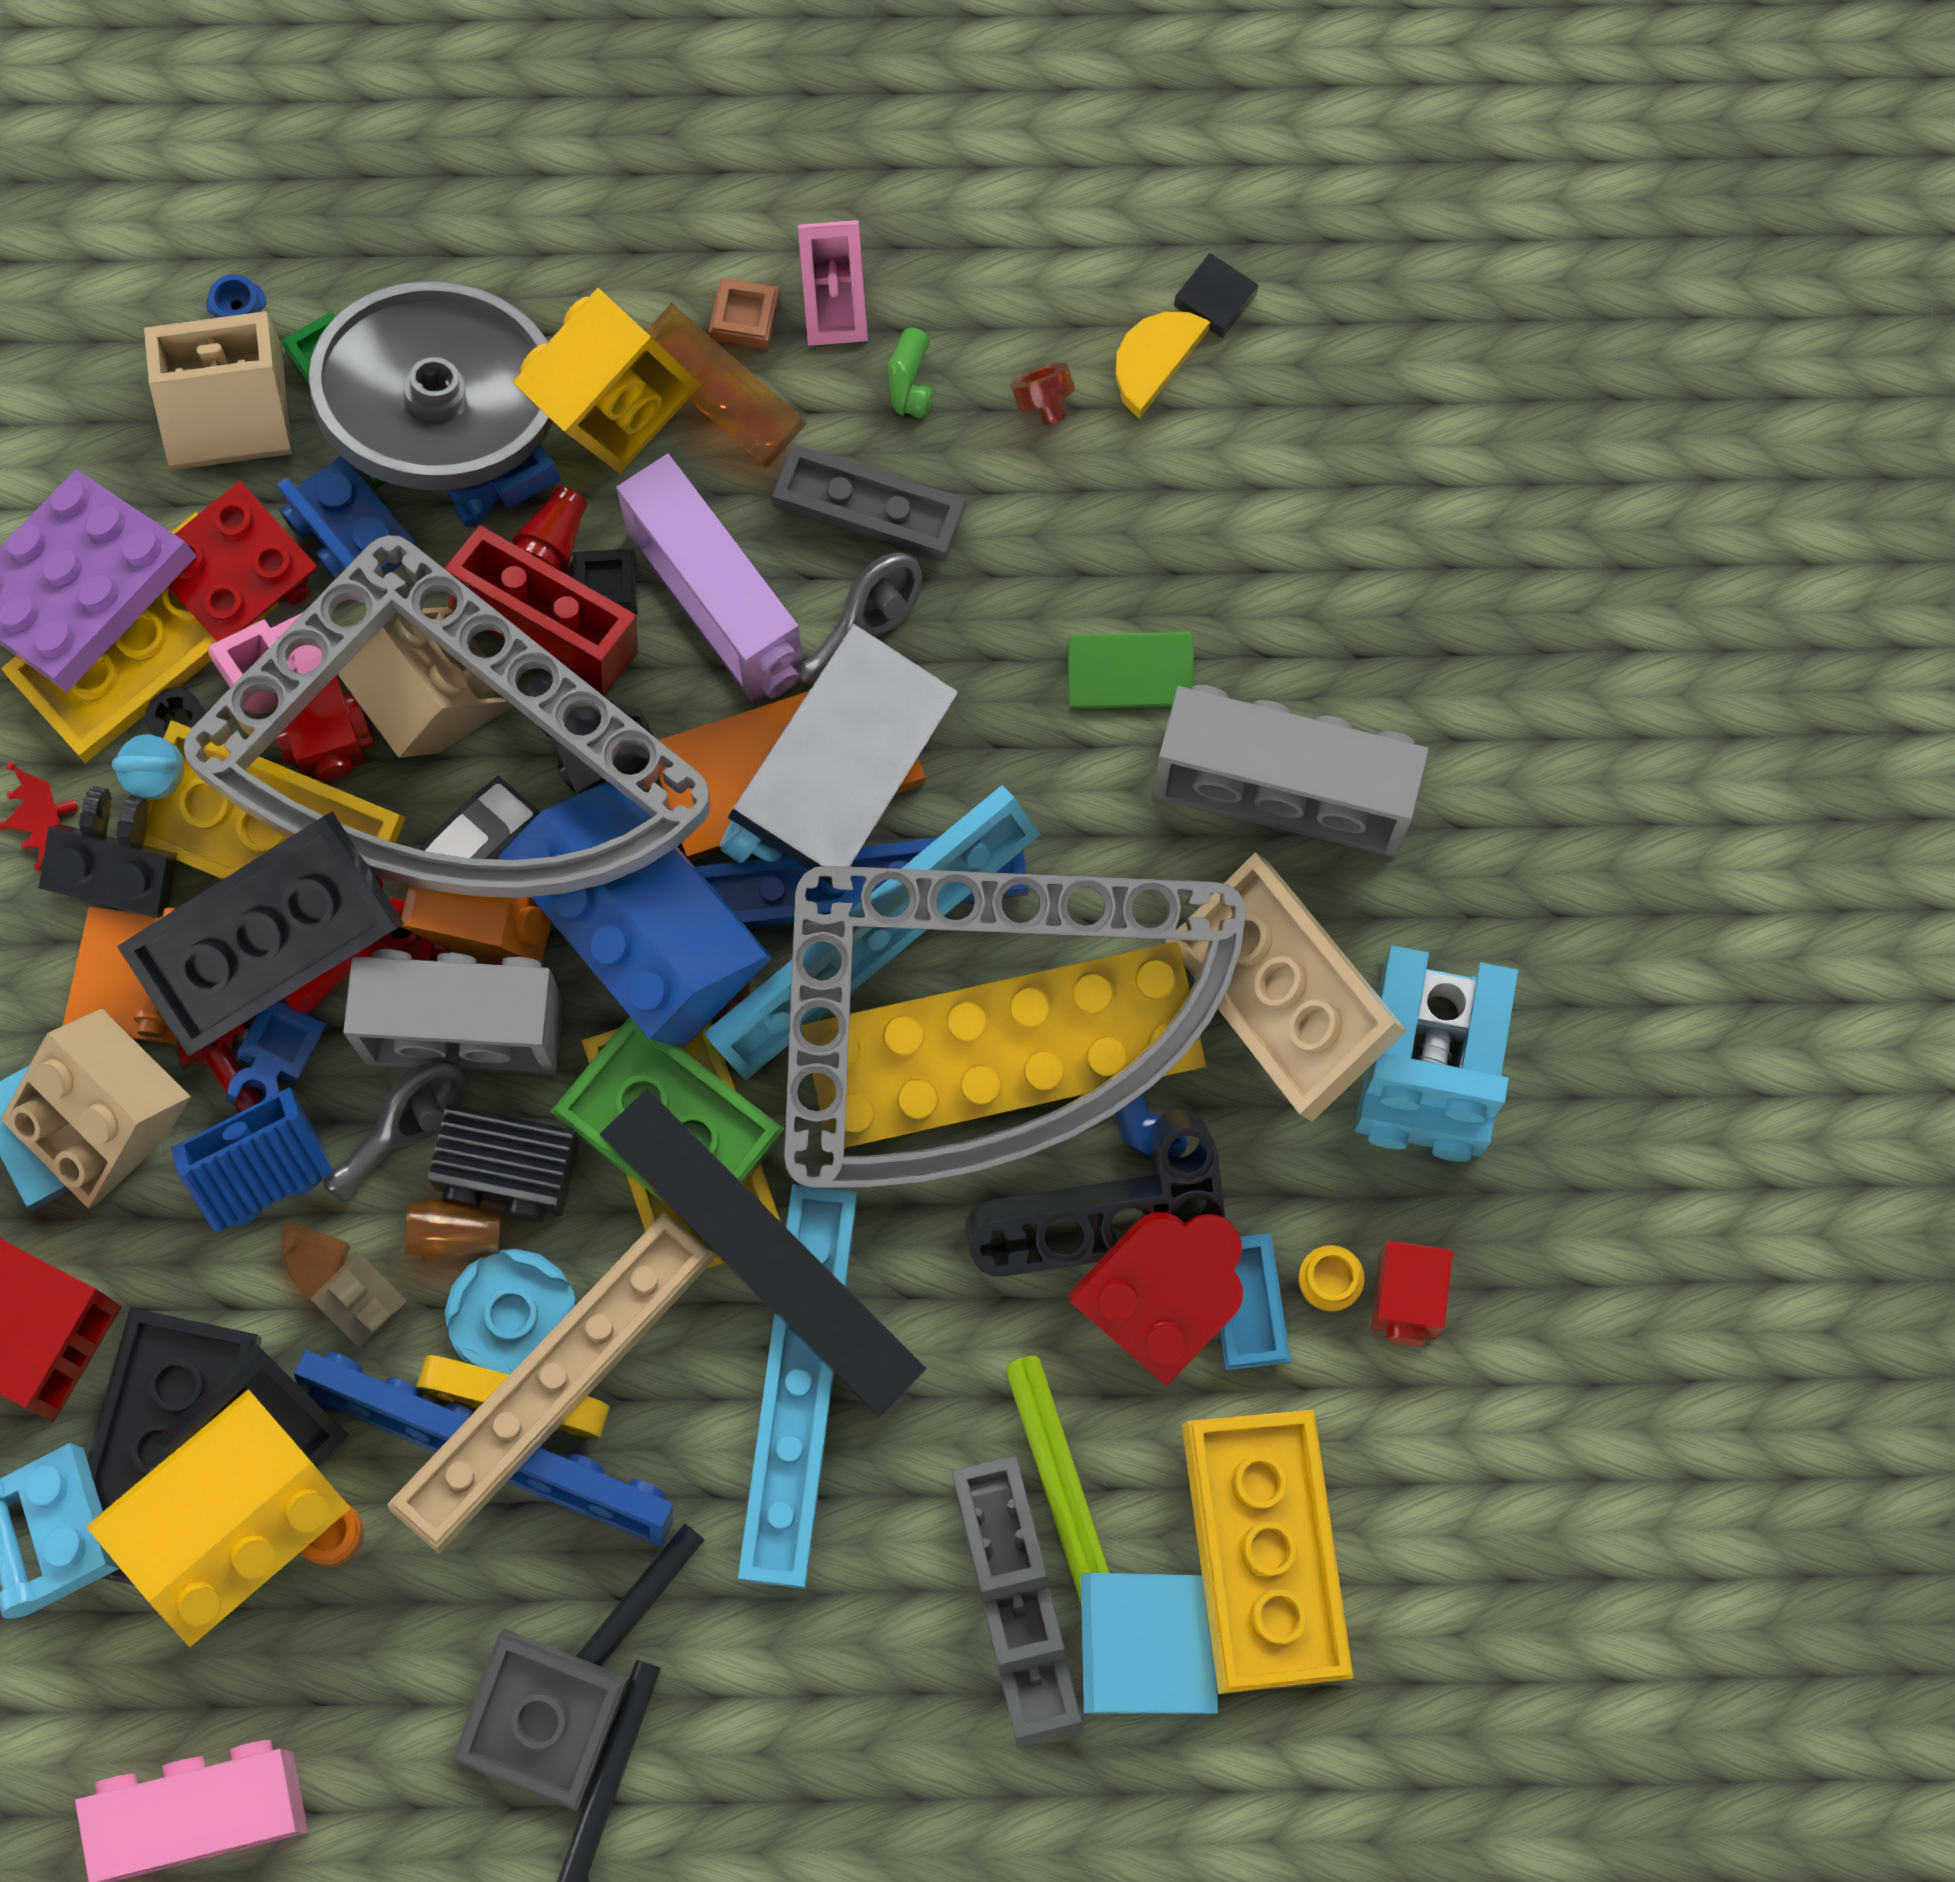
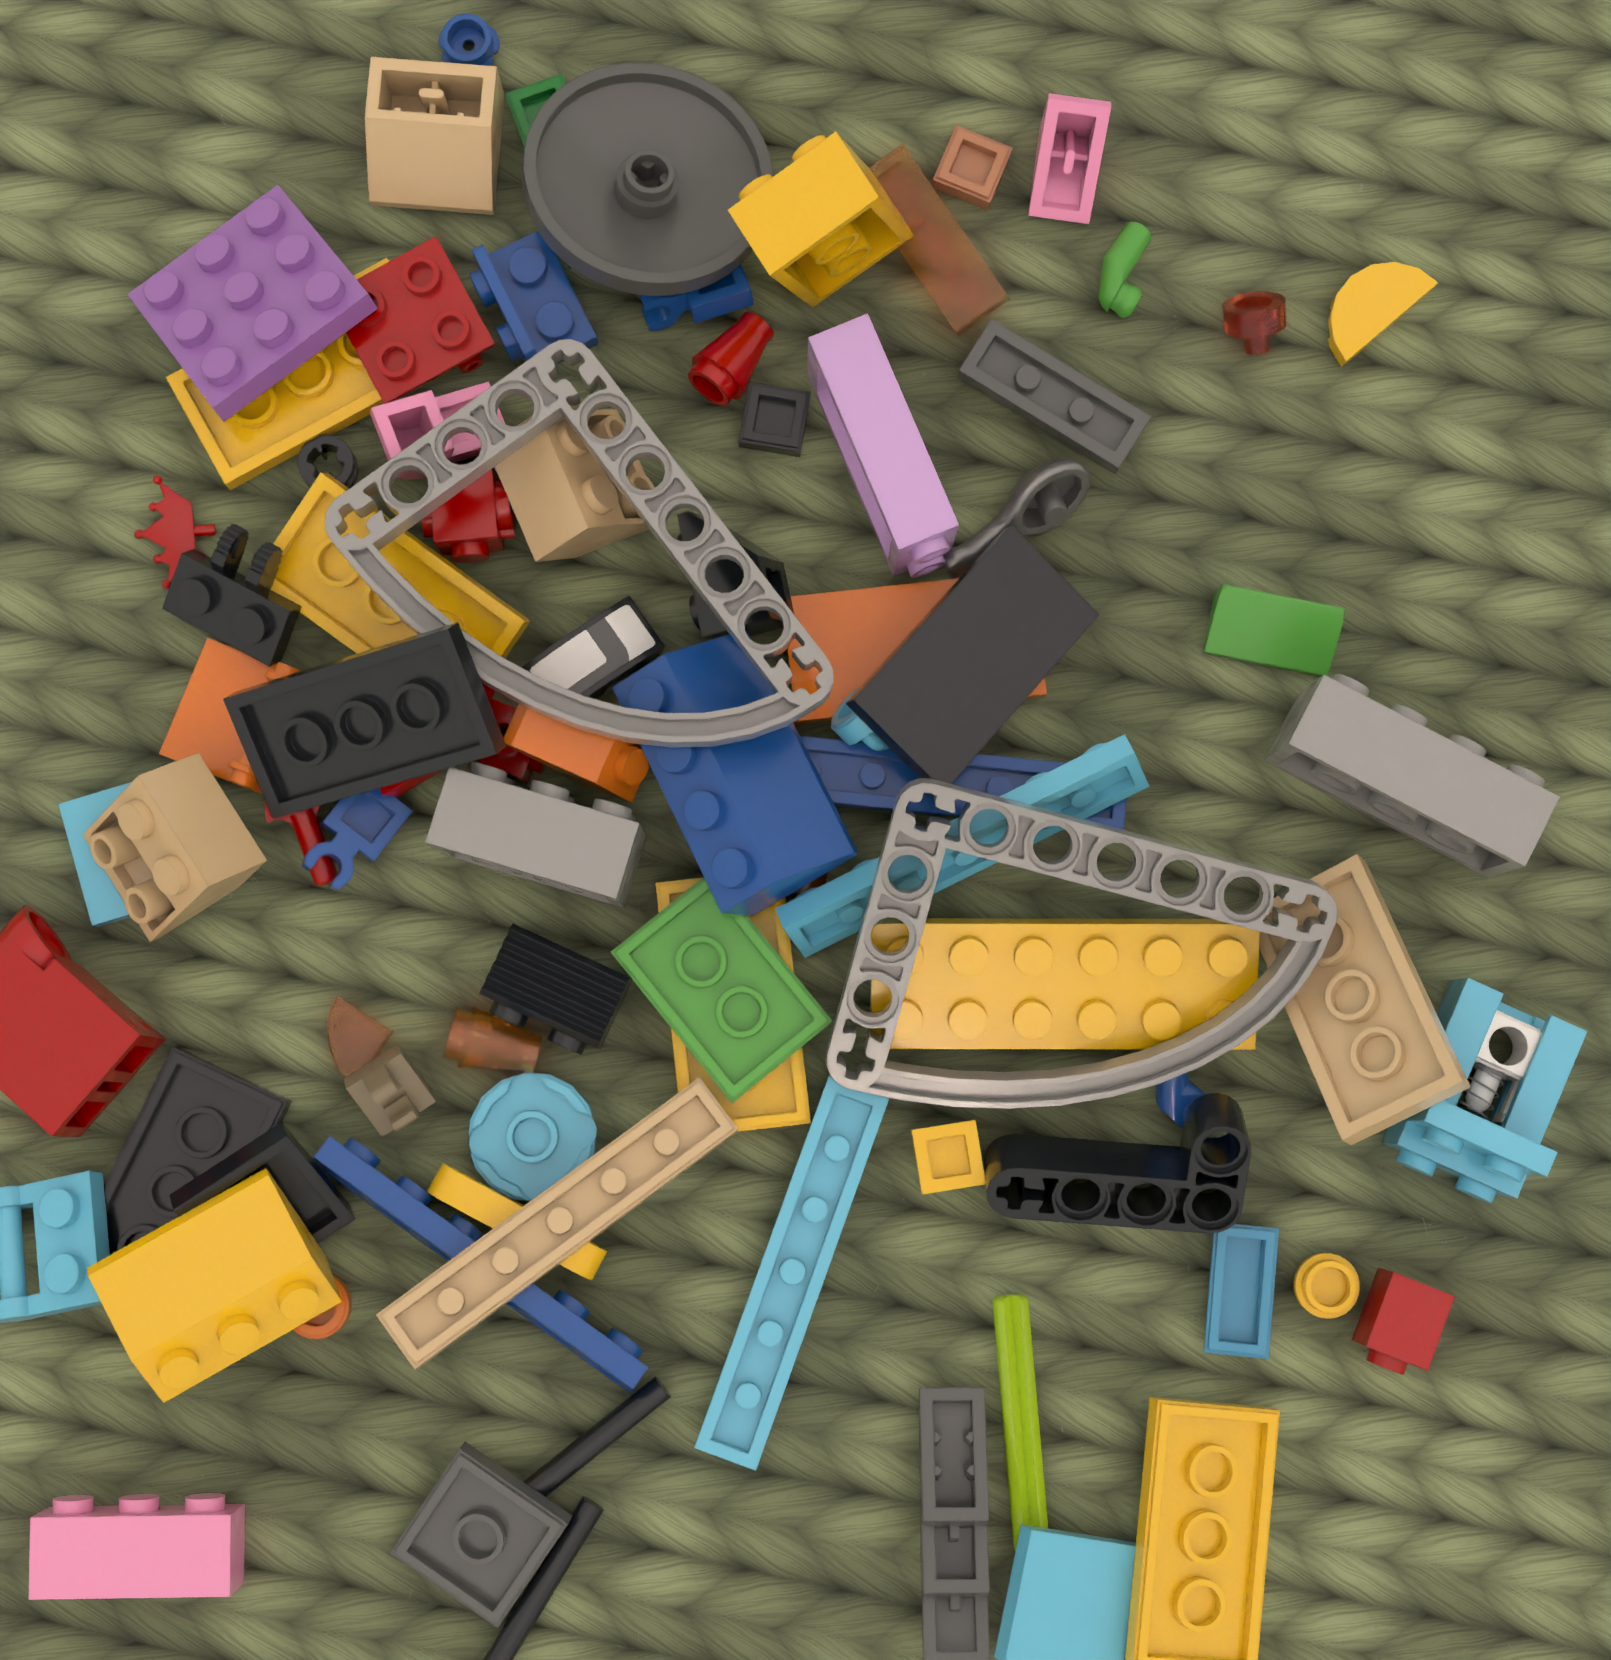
camera: 10 degrees right, 10 degrees up
(149, 767) = (290, 516): medium azure tile -> none
(252, 1161) = (314, 934): blue brick -> none
(407, 1117) = (475, 919): flat silver piece -> none
(551, 608) = (710, 440): red brick -> none
(763, 1253) = (786, 1142): black tile -> none
(928, 1237) = (948, 1156): none -> yellow plate
(1165, 1289) = (1165, 1267): red plate -> none
(1216, 294) = (1450, 253): black tile -> none

